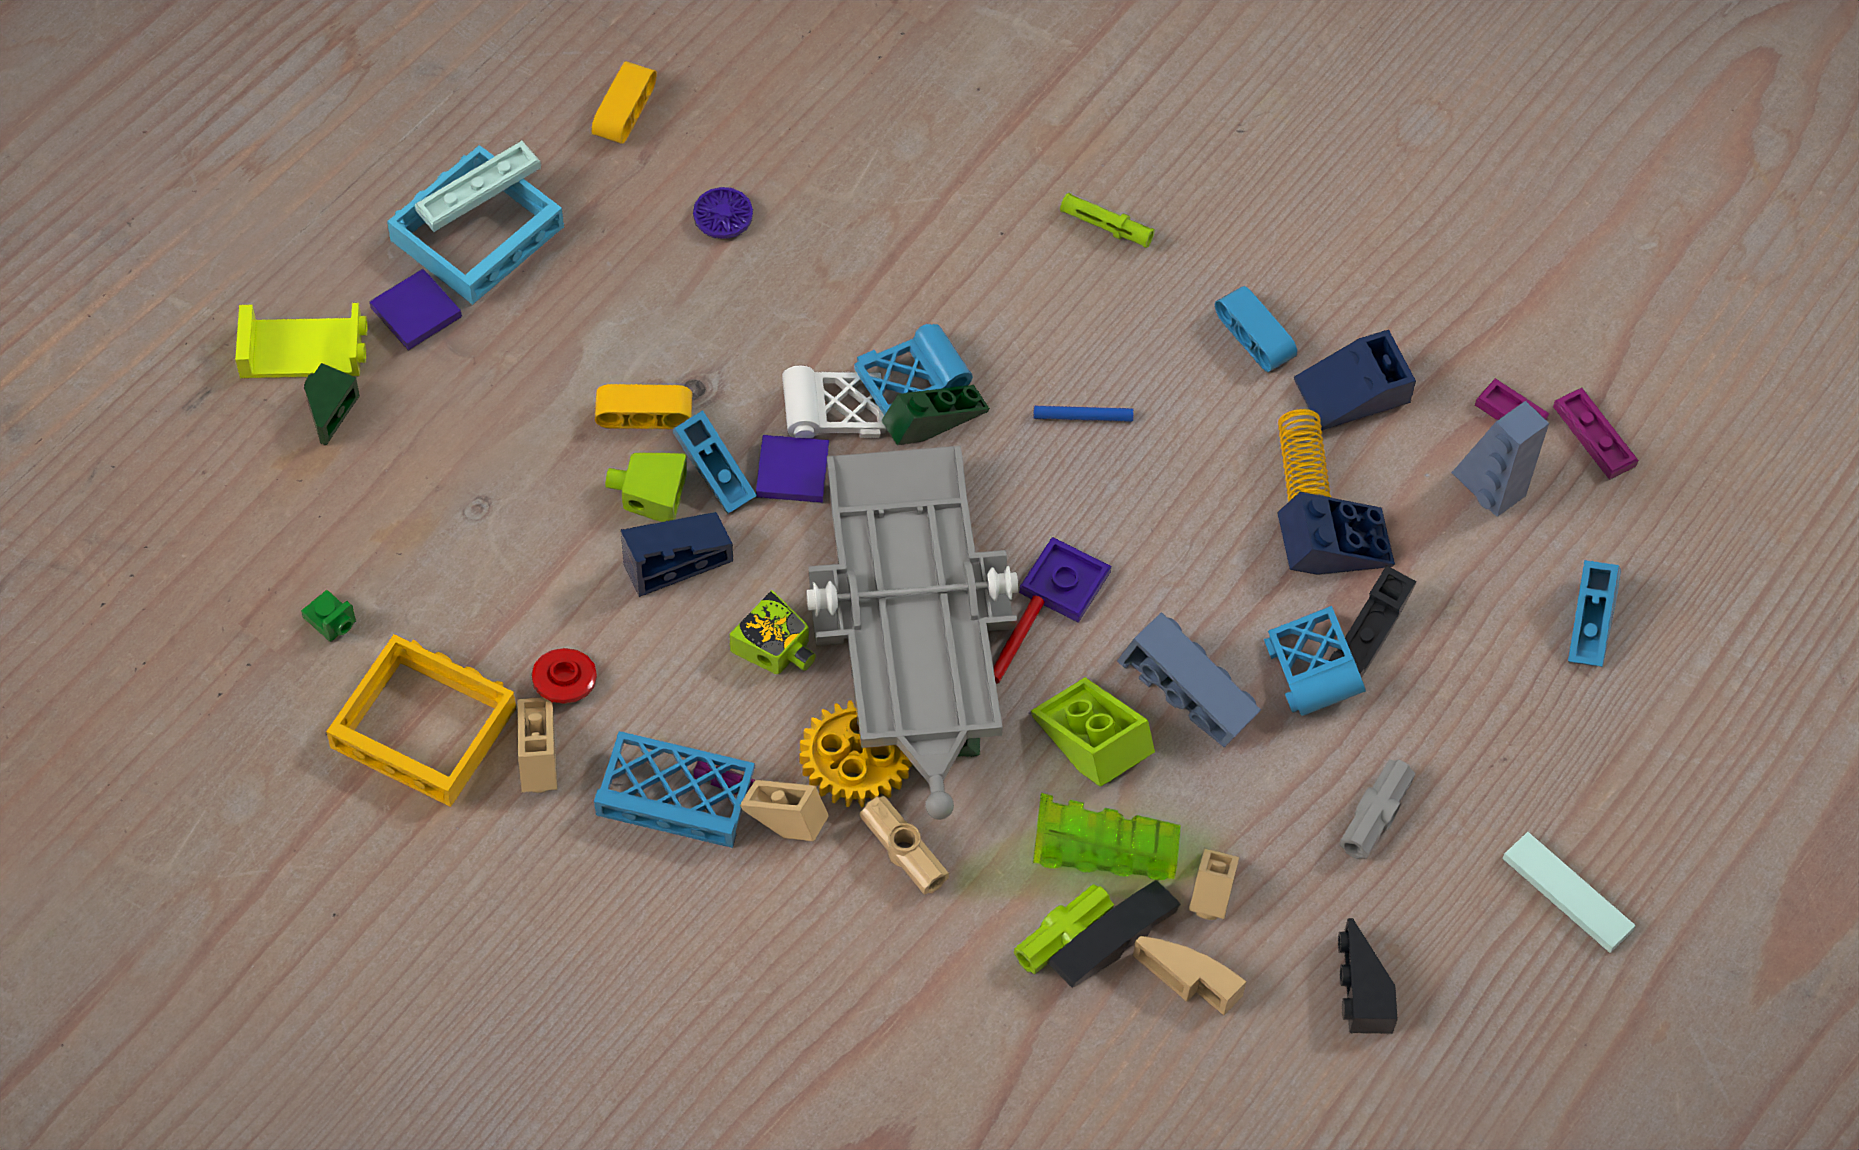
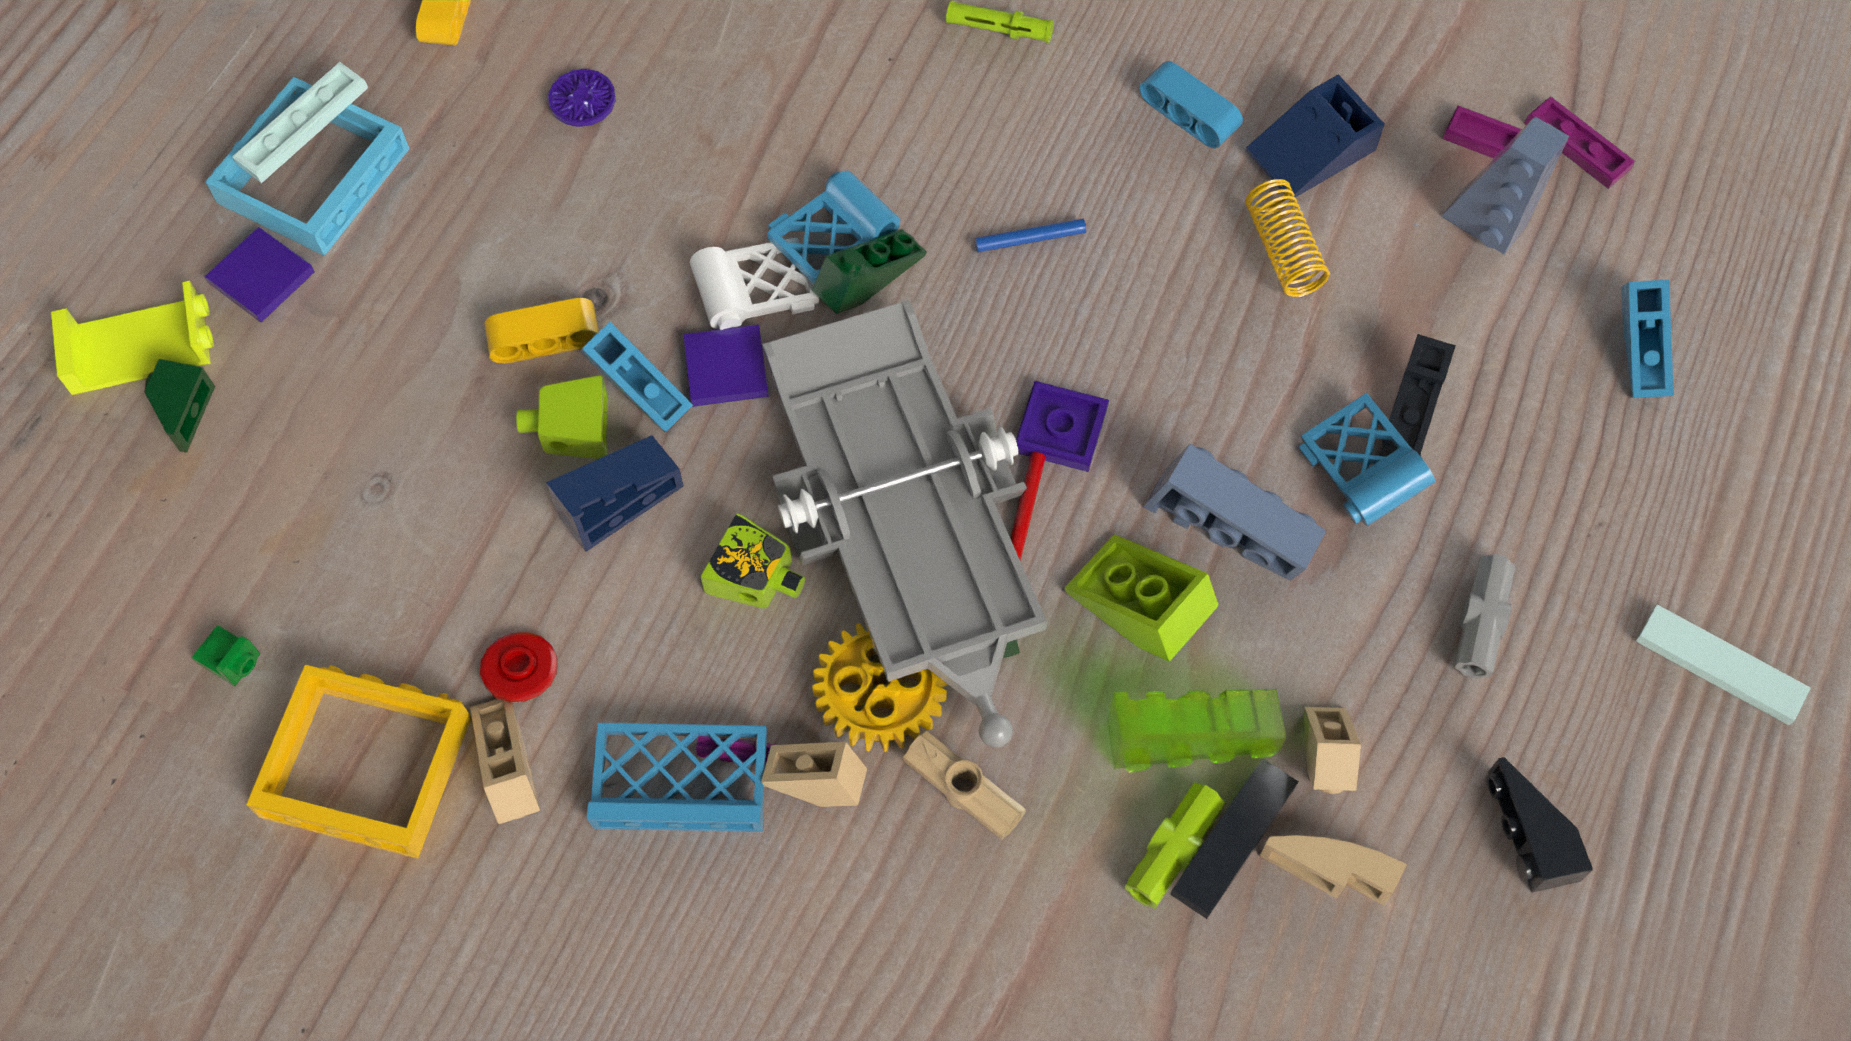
camera: 10 degrees left, 5 degrees up
(1333, 535) = (1340, 312): dark blue slope -> none

